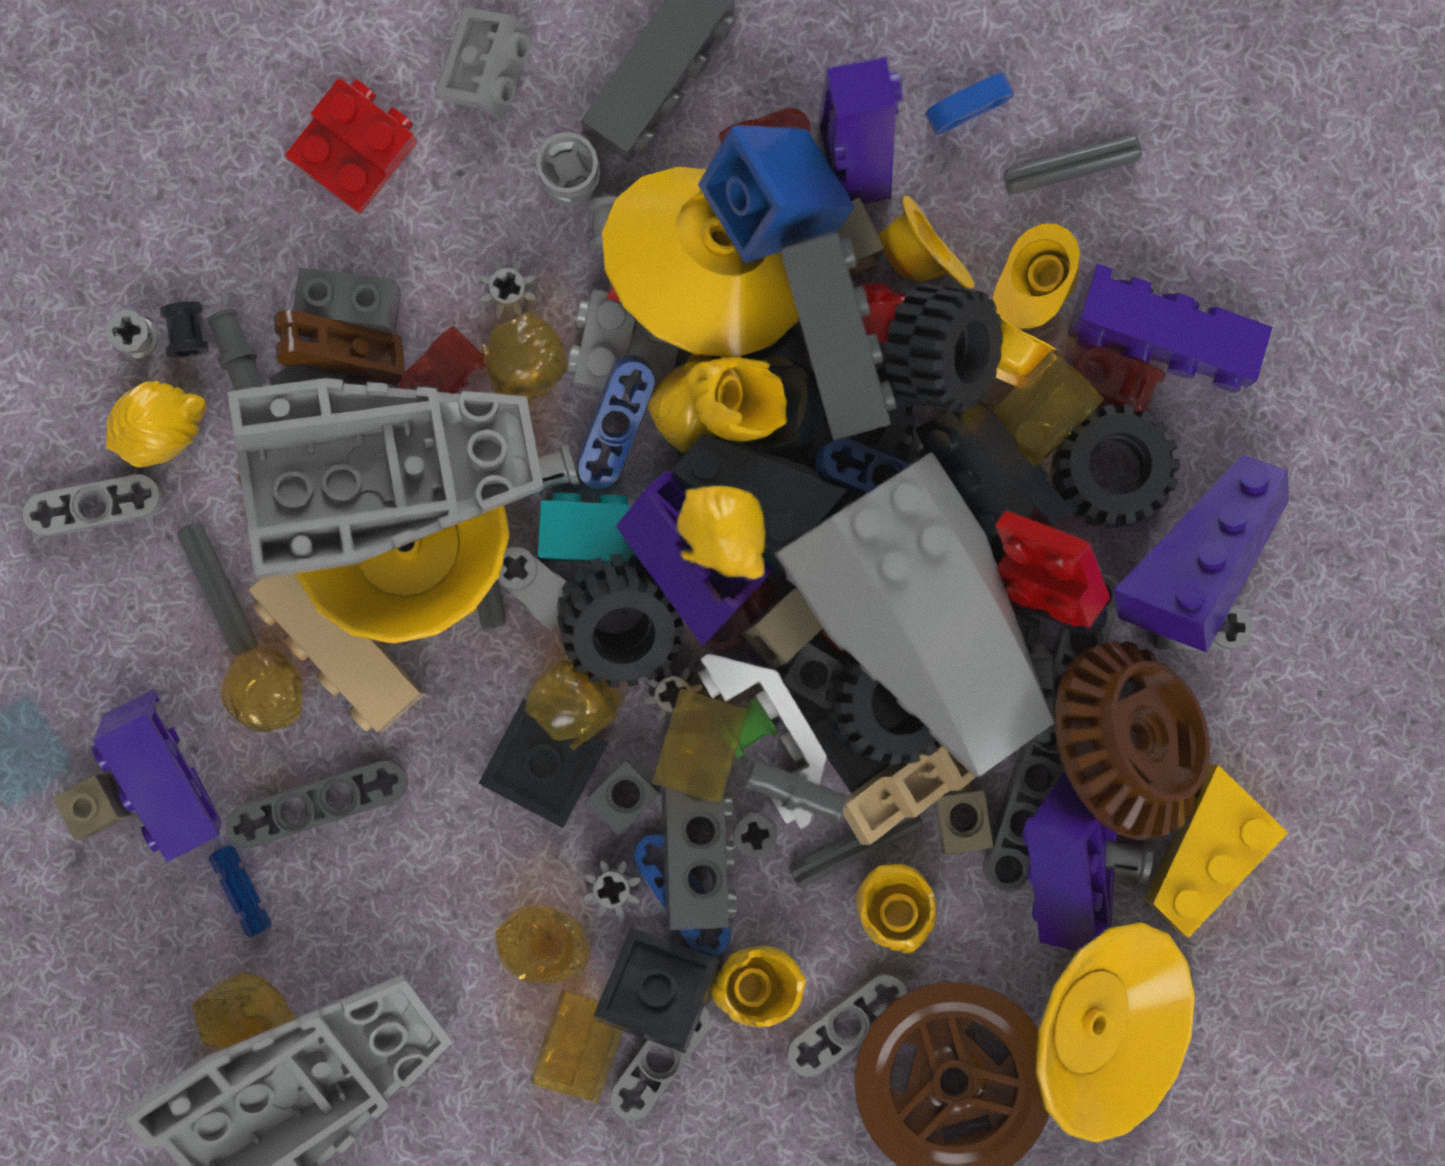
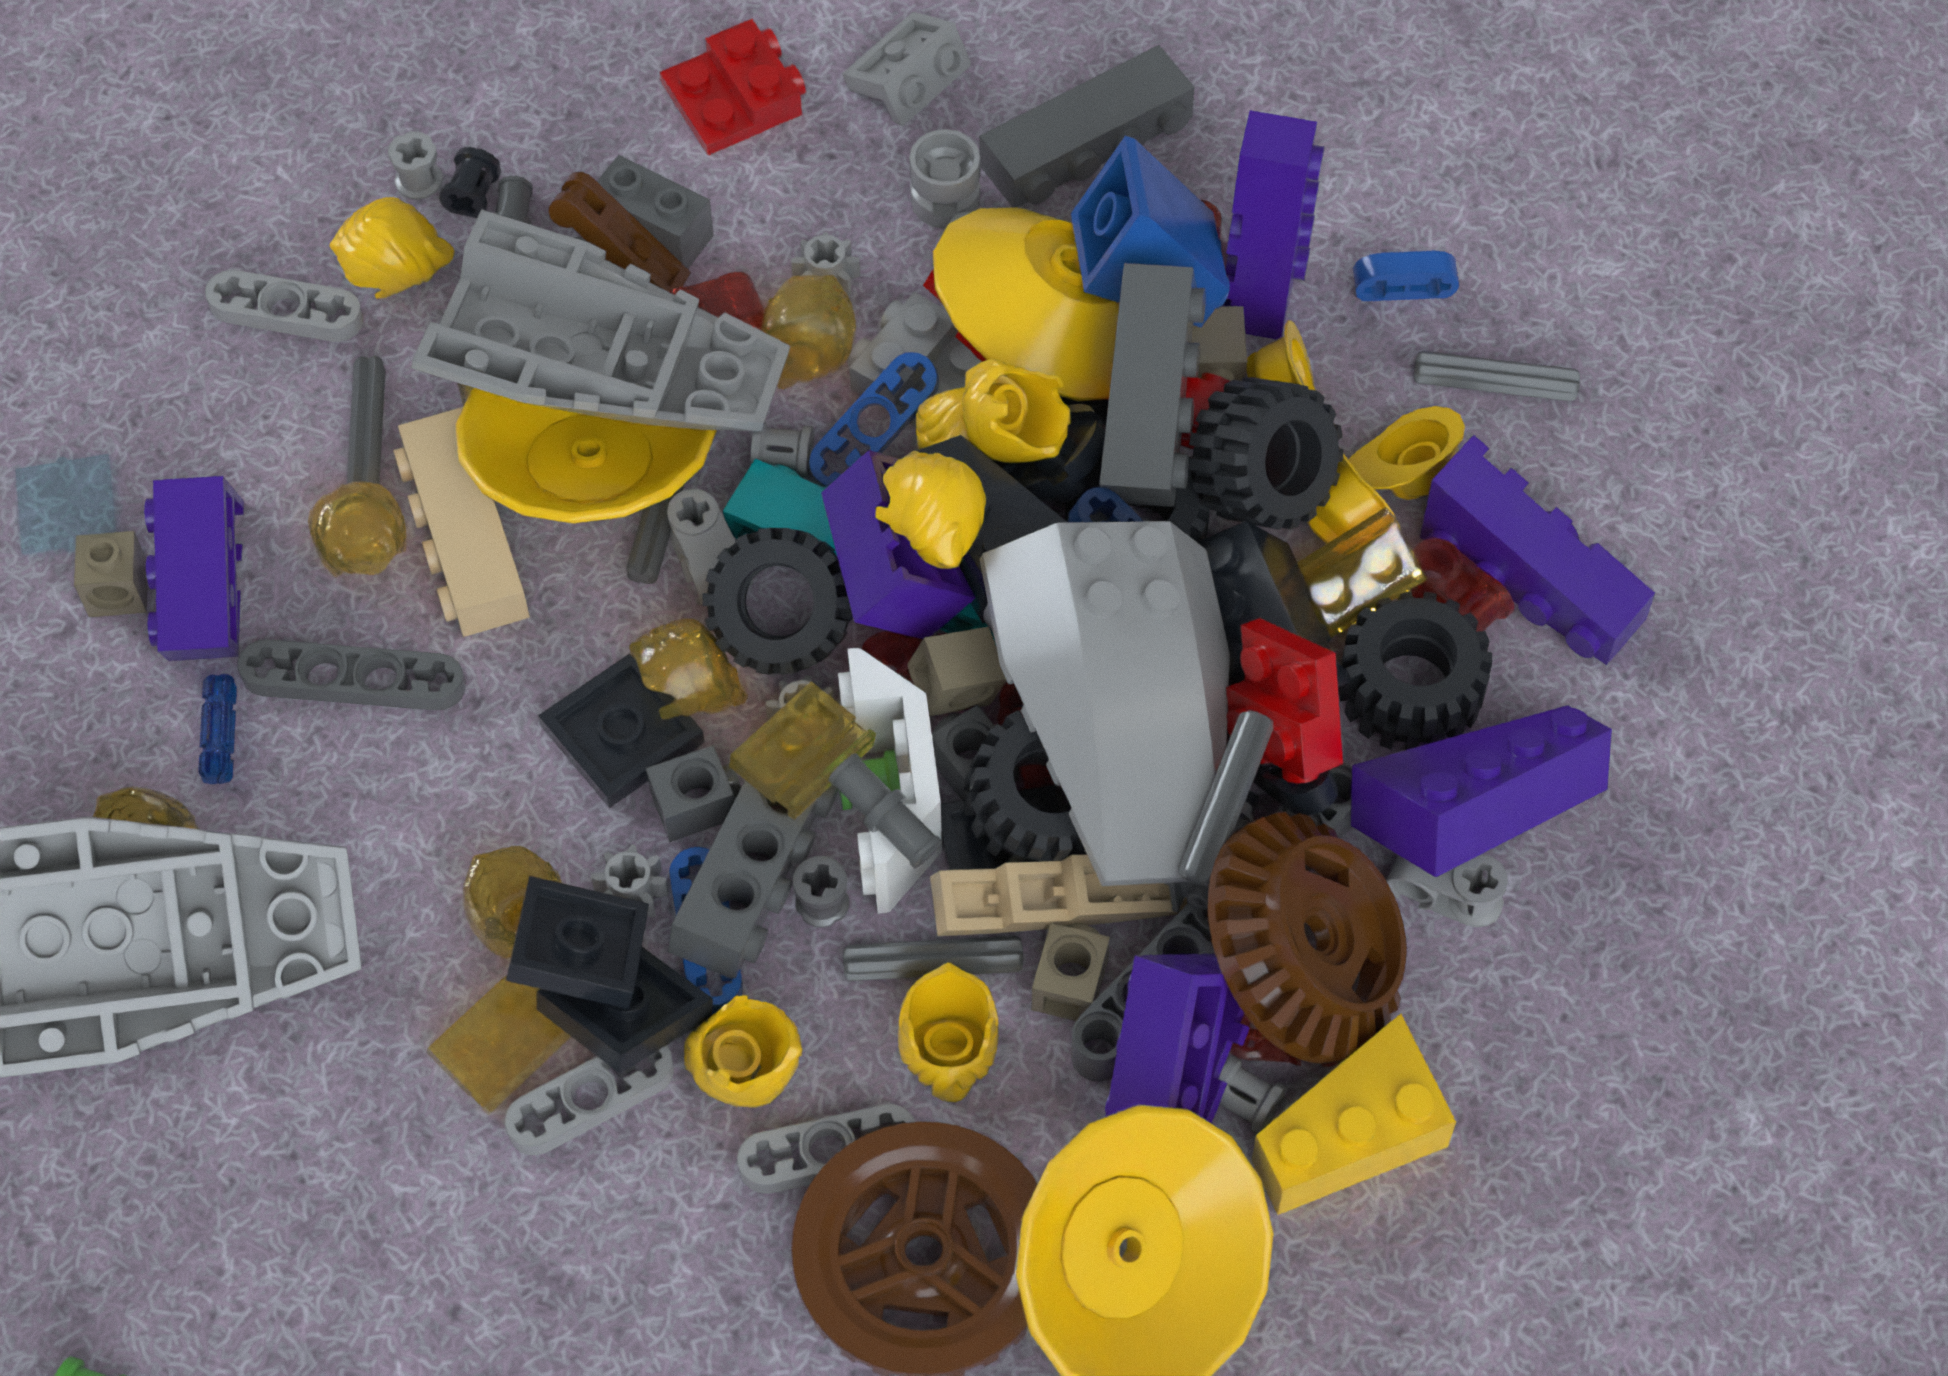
camera: 25 degrees right, 25 degrees down
(607, 969) = (578, 942): none -> black plate
(1041, 673) = (1226, 795): none -> dark grey axle

